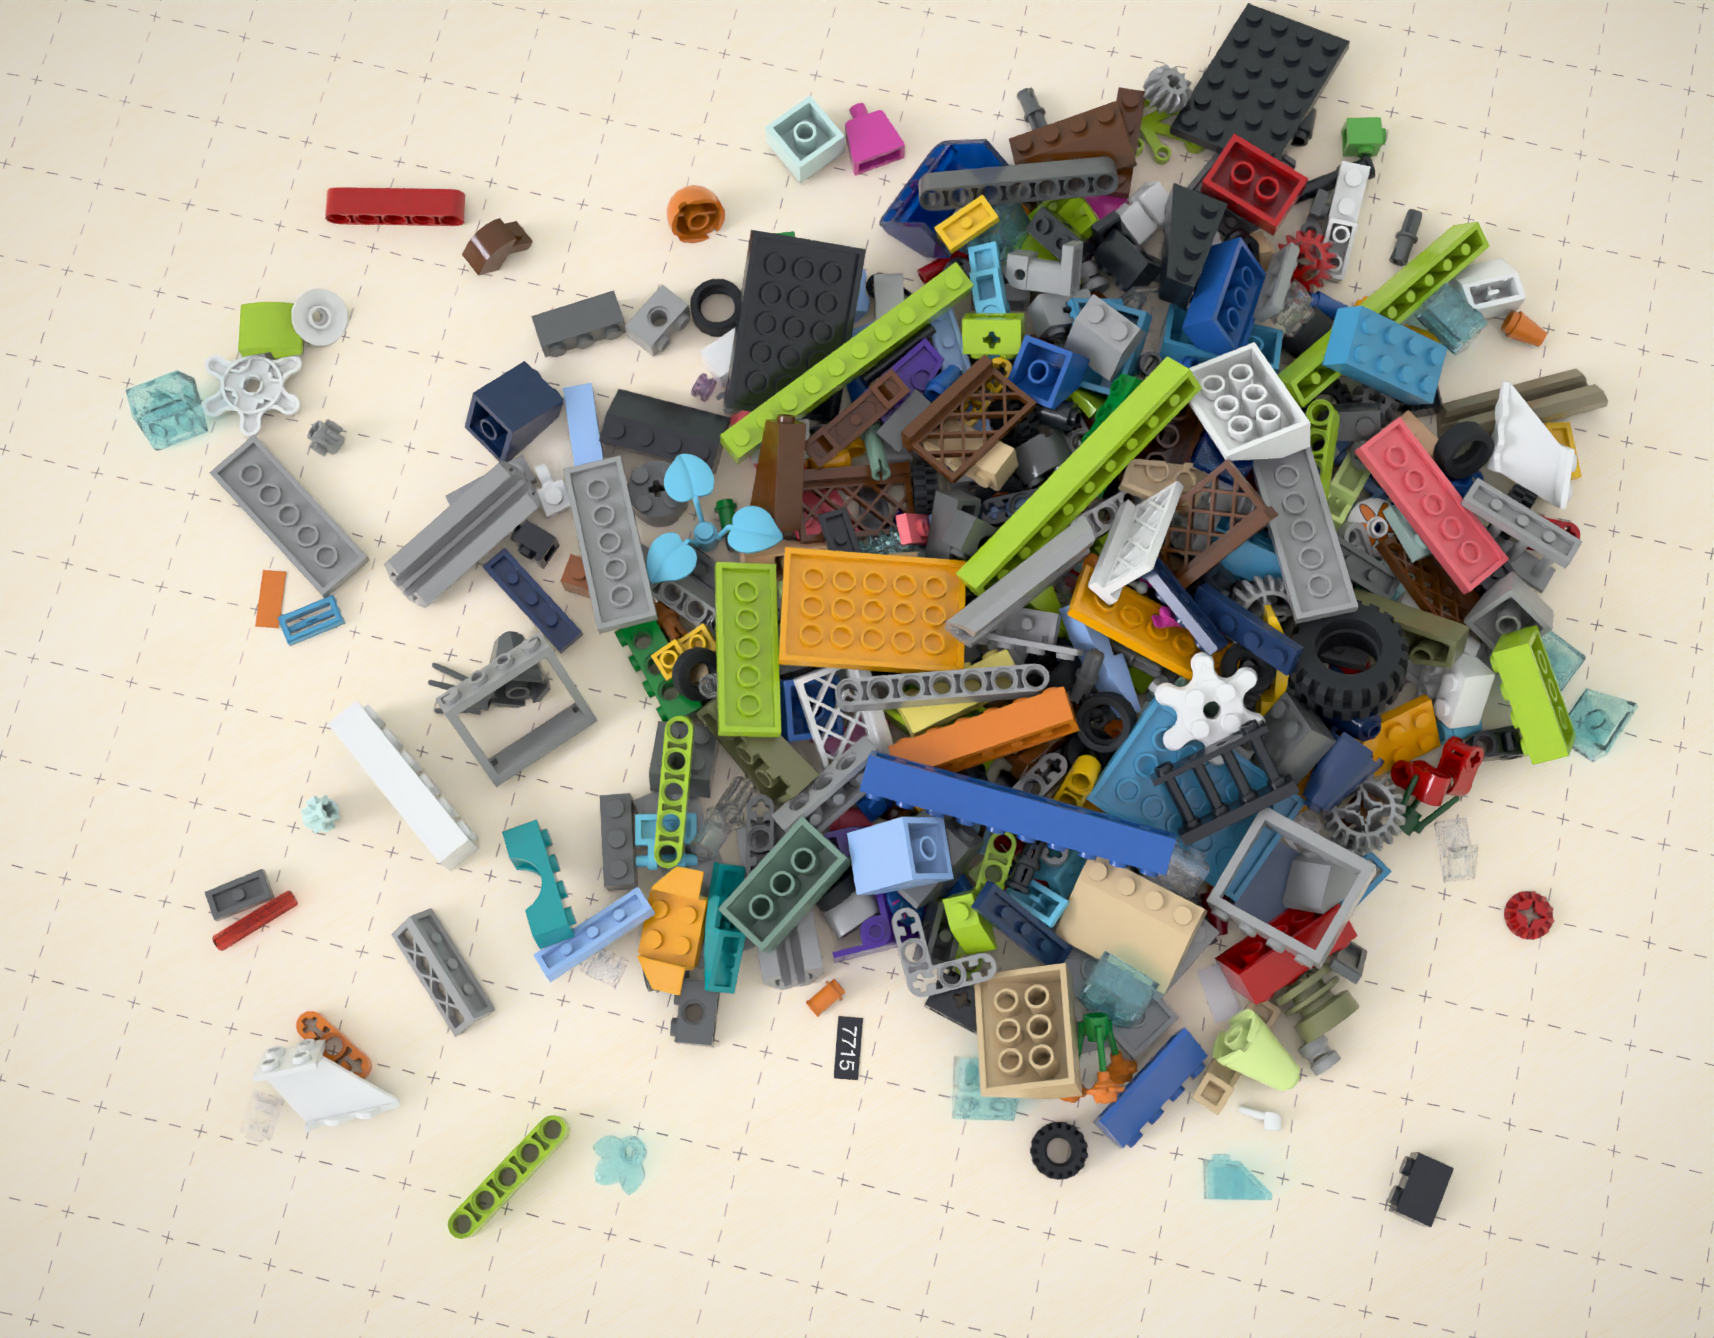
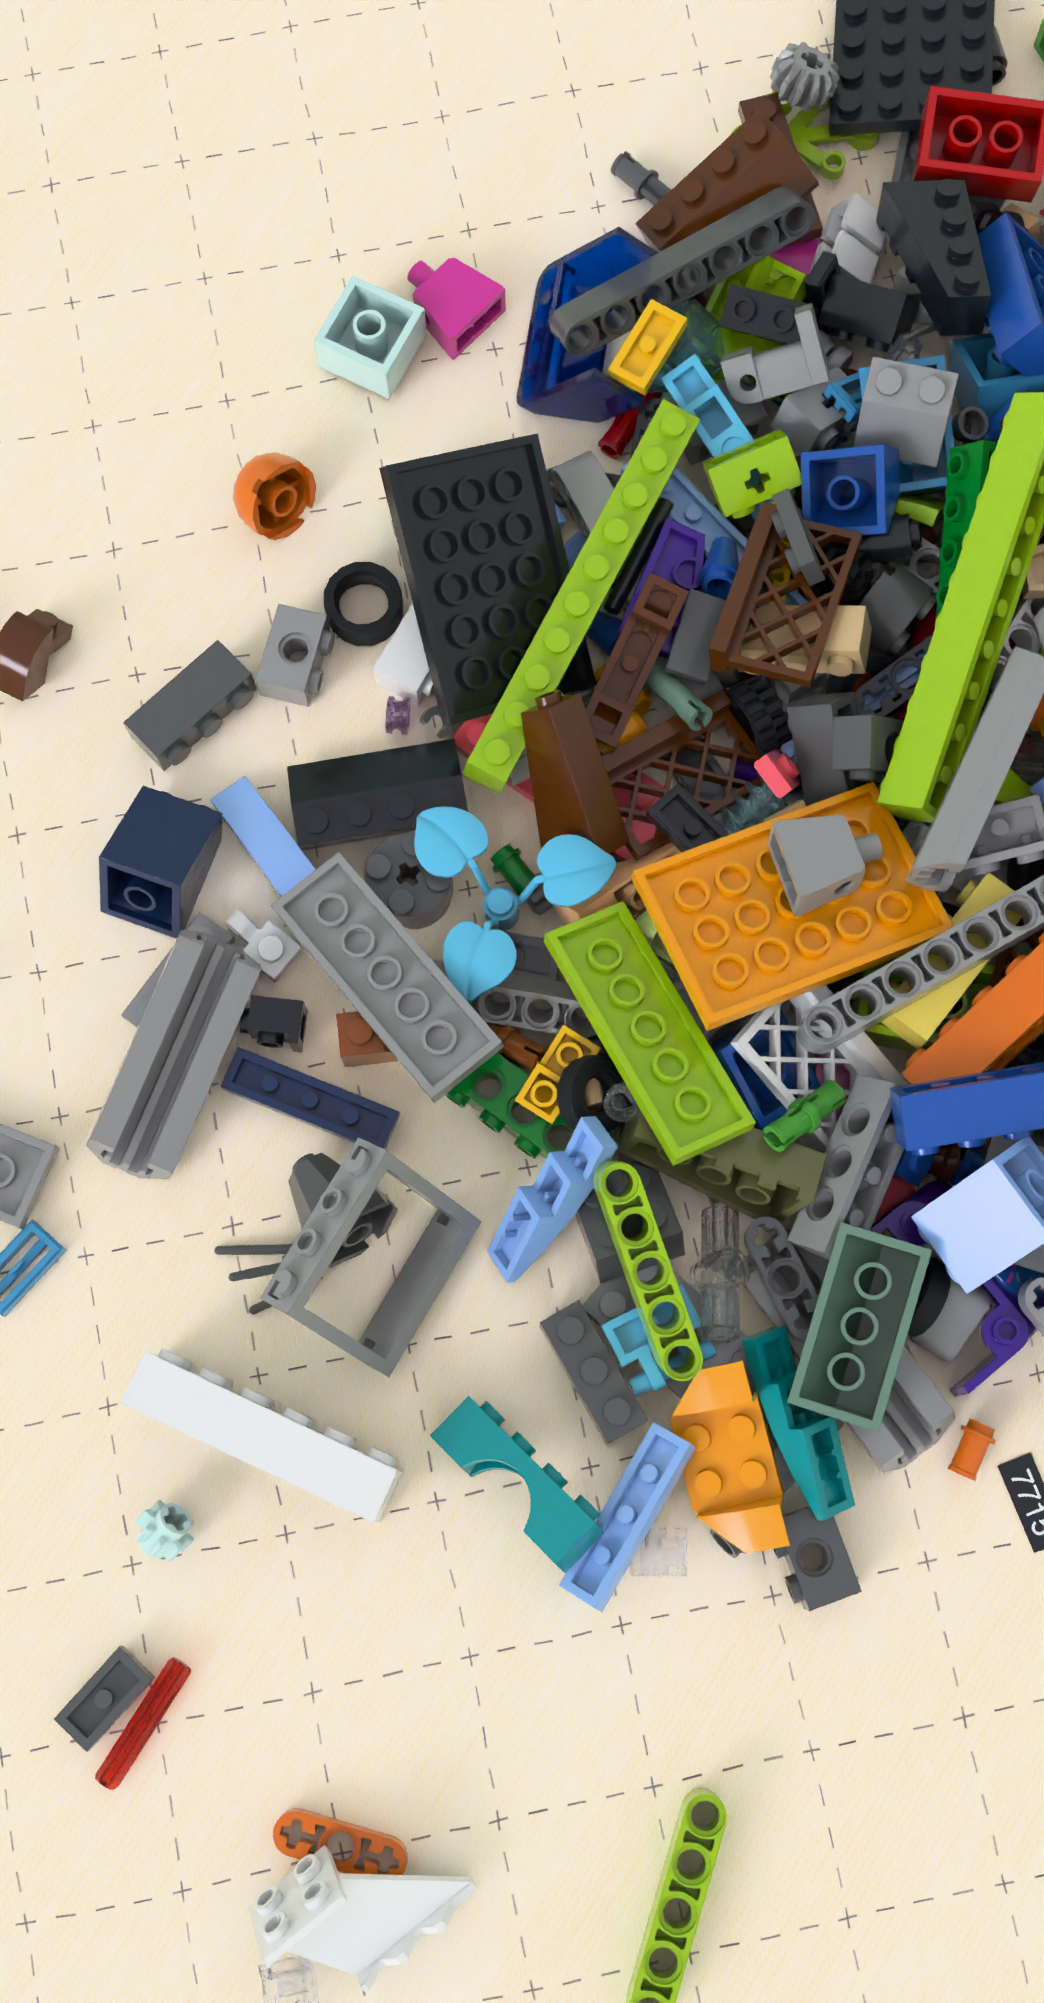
camera: 25 degrees left, 0 degrees up
(446, 967) = (444, 1661): light grey fence -> none
(616, 1164) = (812, 1818): clear light blue plate -> none
(639, 728) = (546, 1207): none -> light blue slope
(816, 744) = (804, 1115): none -> bright green pin
(900, 592) = (819, 859): none -> light grey torso
(992, 380) = (790, 524): none -> dark grey plate

